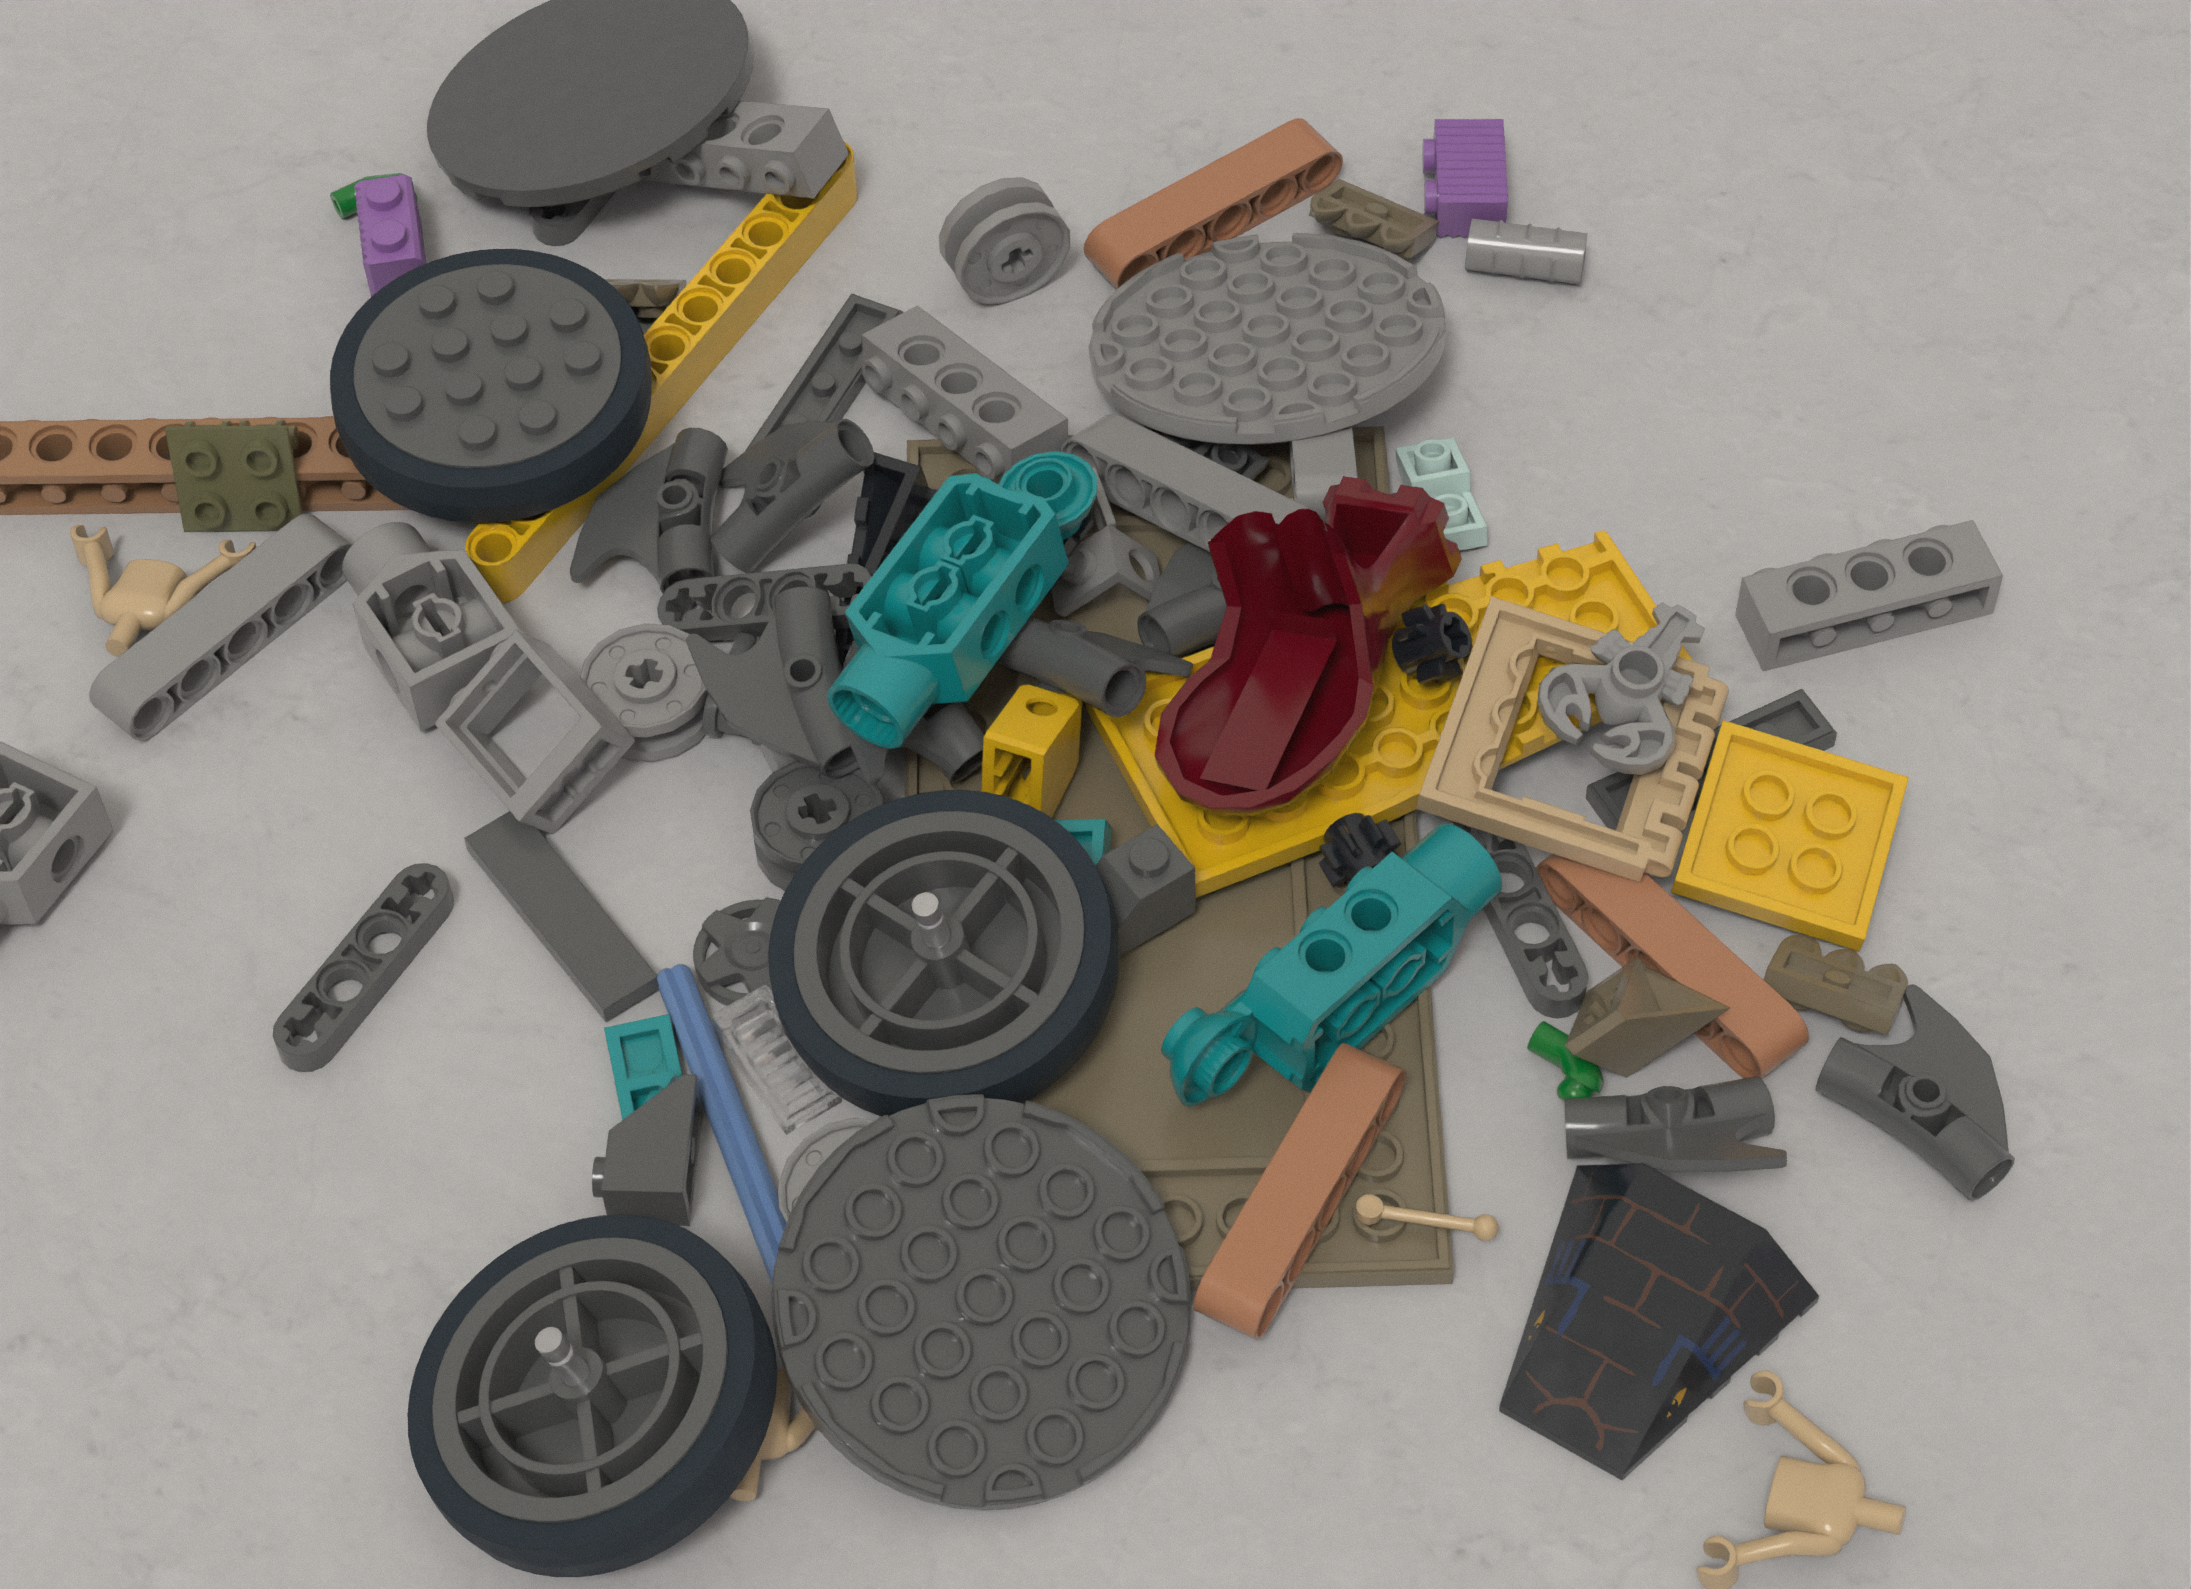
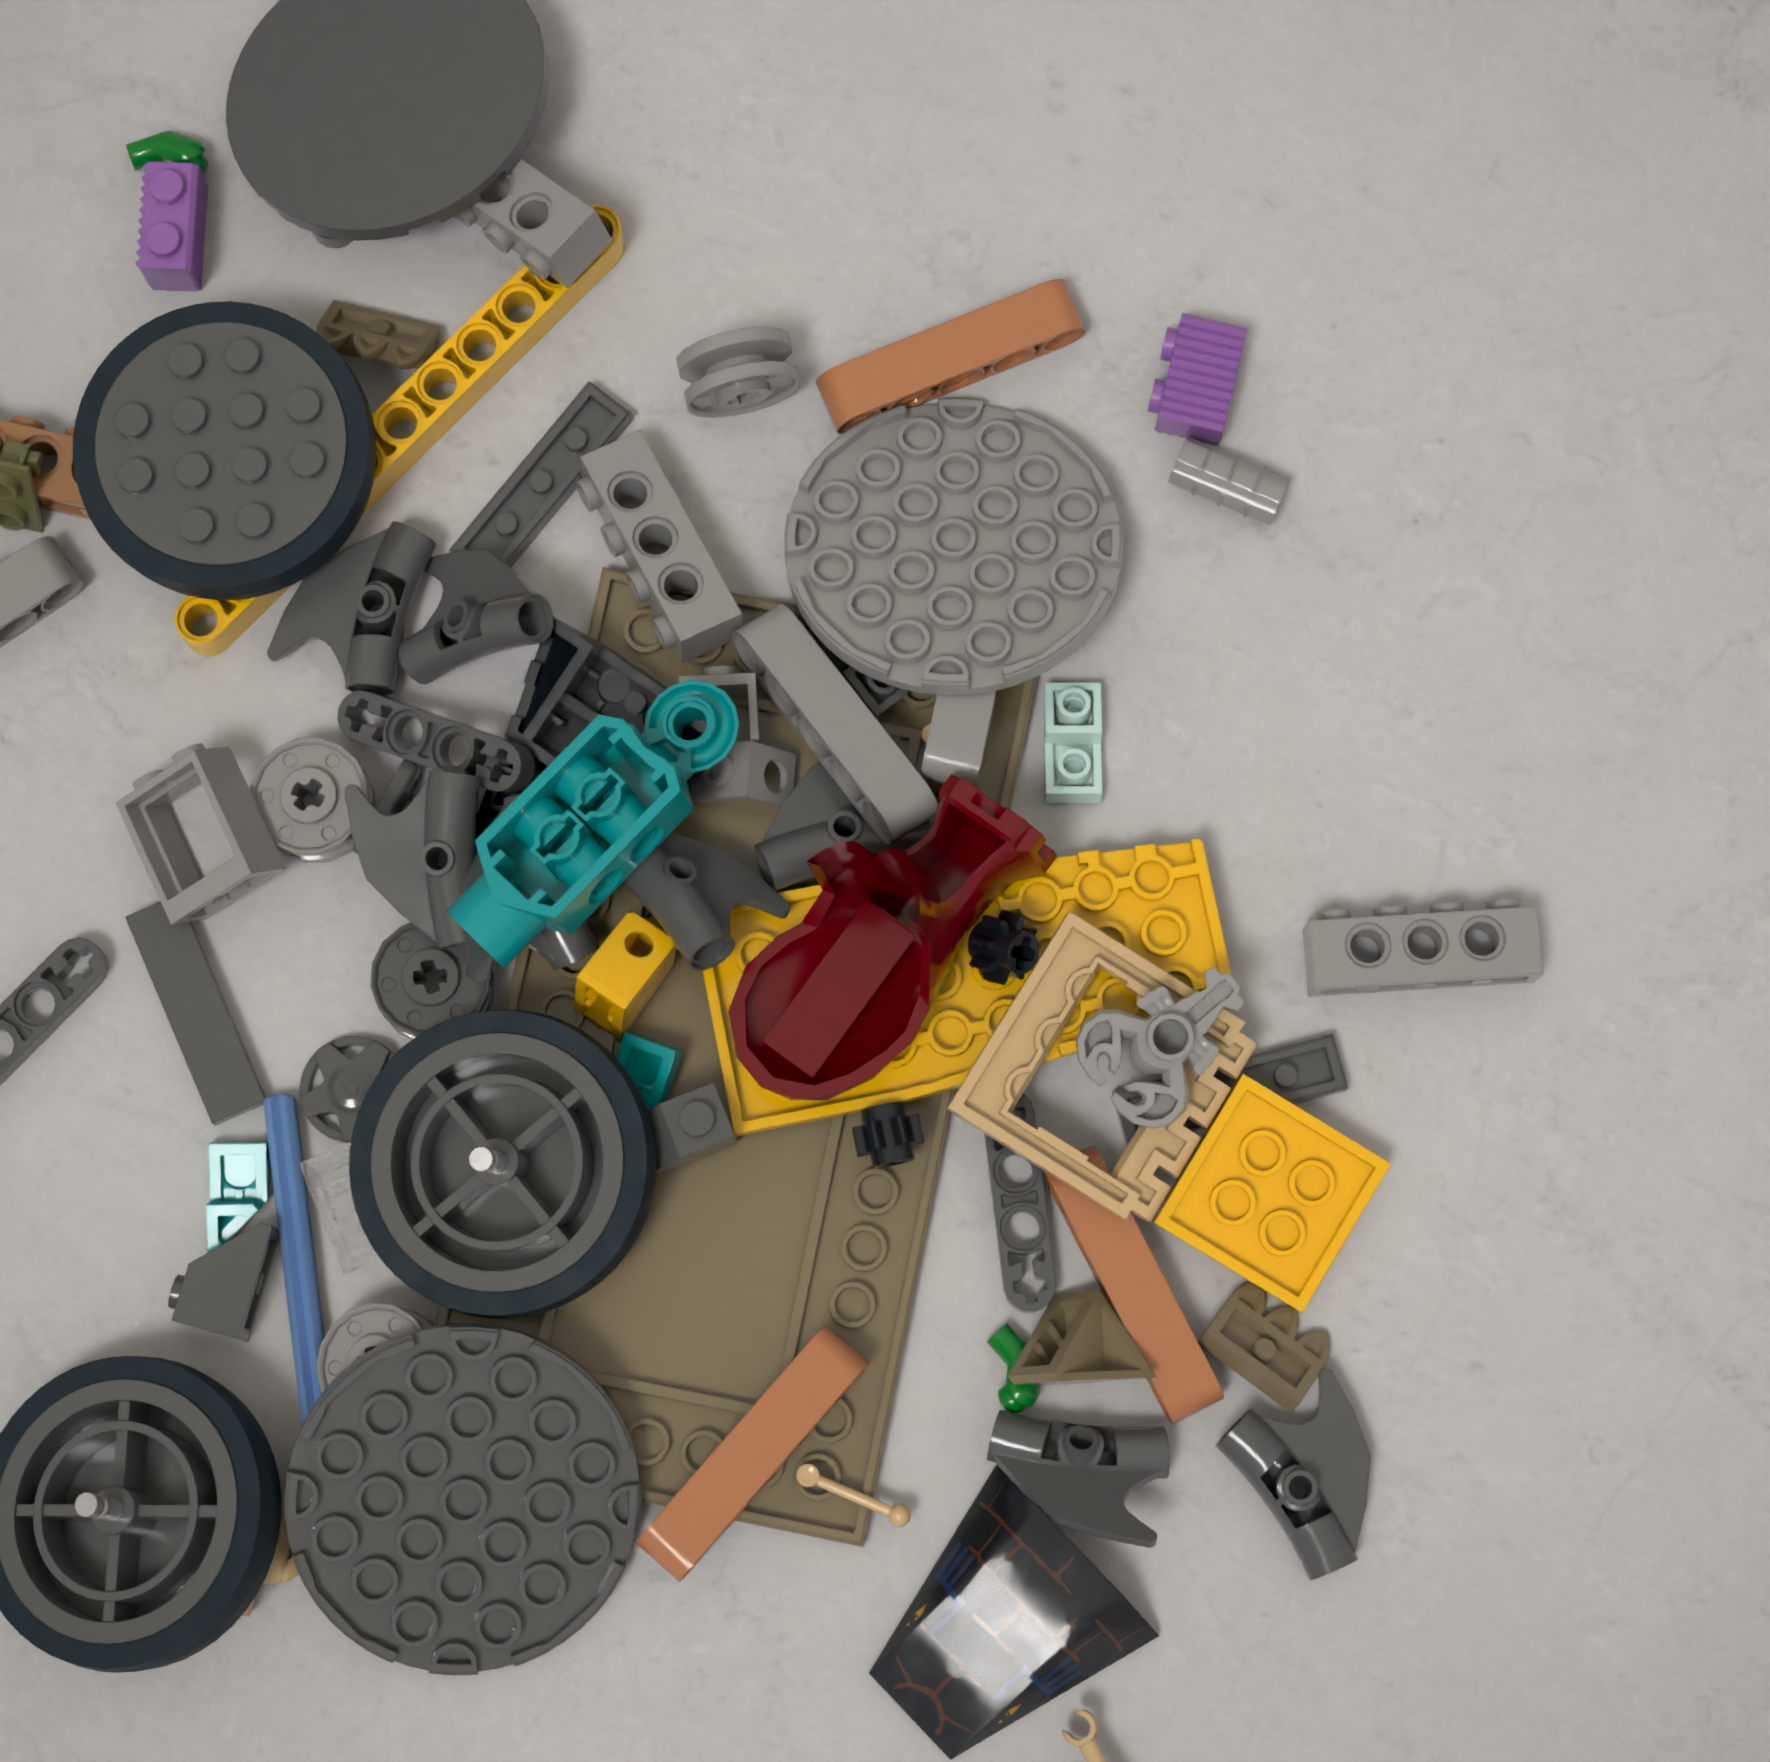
camera: 10 degrees right, 25 degrees up
(423, 616) = (129, 685): light grey brick -> none
(1342, 971) = (912, 1222): teal brick -> none
(1368, 216) = (1094, 410): dark tan plate -> none

